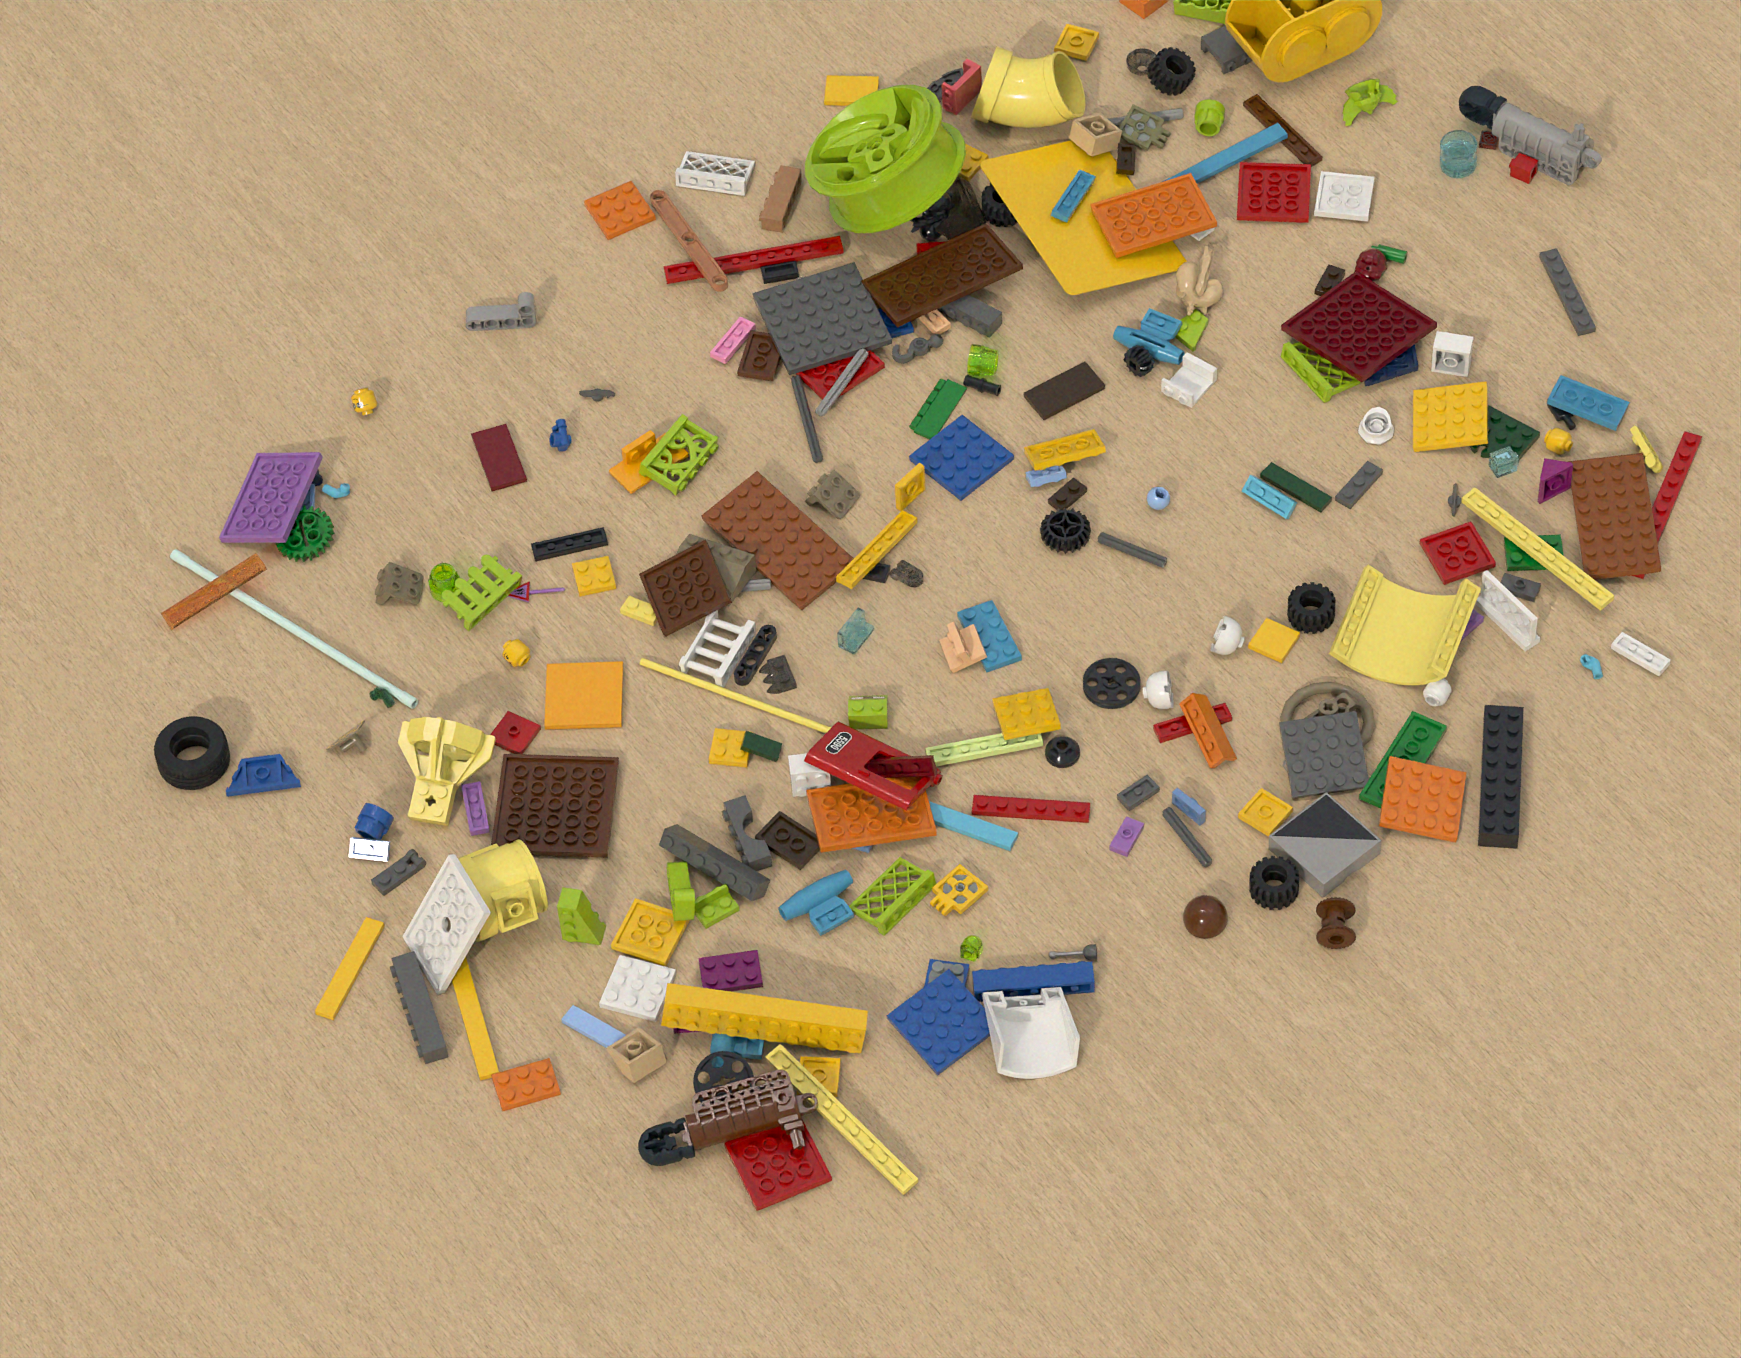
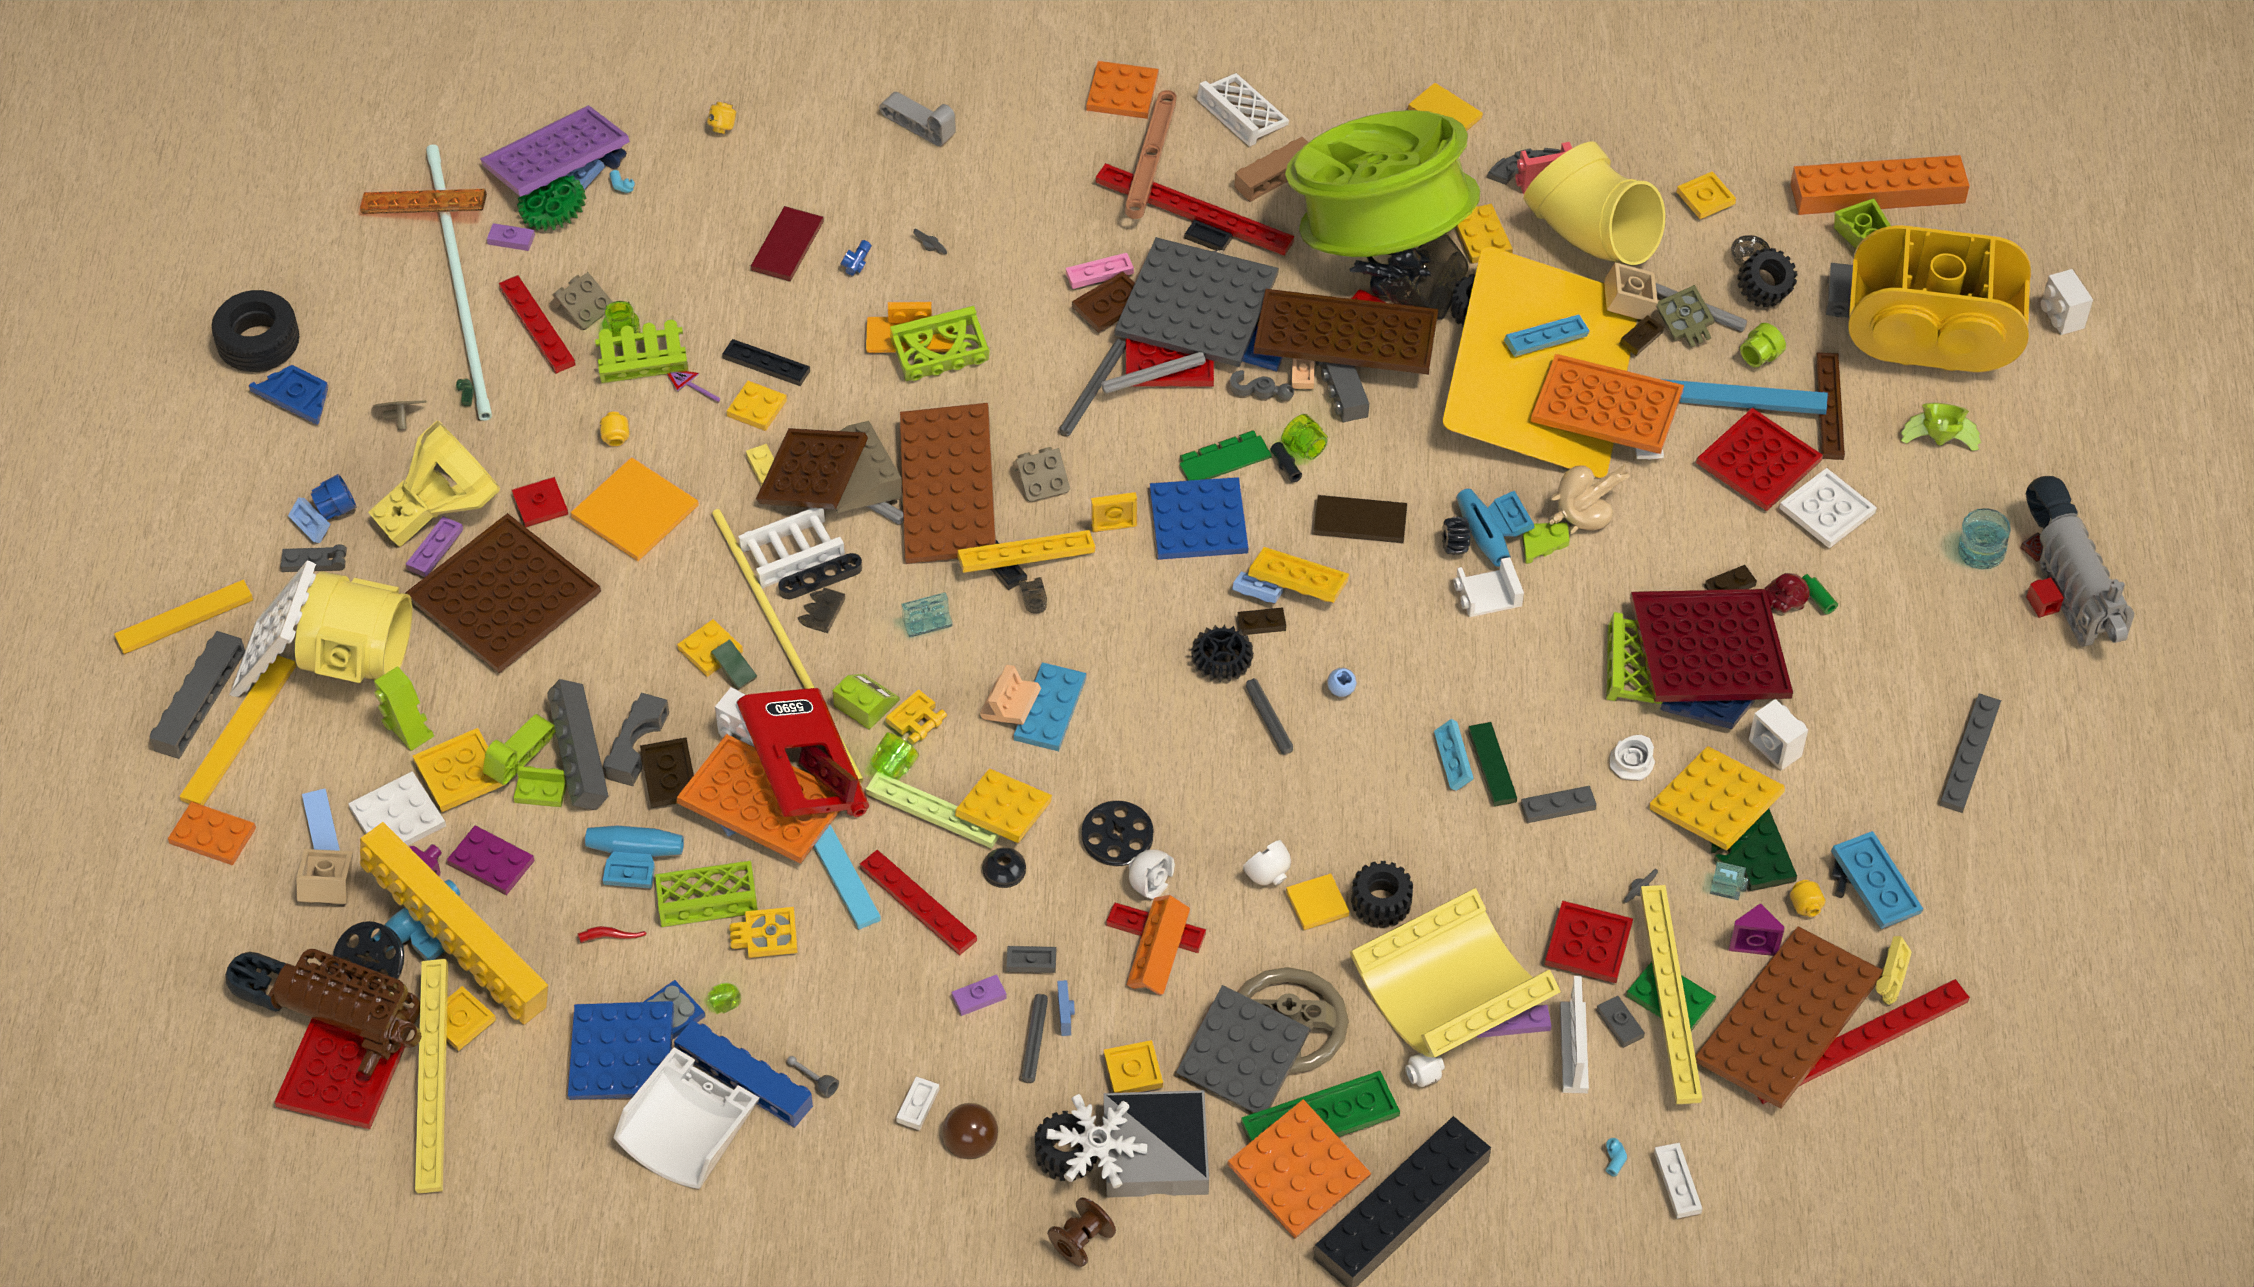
camera: 35 degrees right, 0 degrees up
(297, 576) = (510, 237): none -> medium lavender plate
(381, 621) = (537, 324): none -> red plate
(849, 965) = (602, 931): none -> red animal
(906, 699) = (913, 710): none -> yellow plate
(927, 729) = (894, 756): none -> clear neon green piece
(1157, 923) = (918, 1103): none -> white plate
(1298, 863) = (1099, 1134): none -> white piece

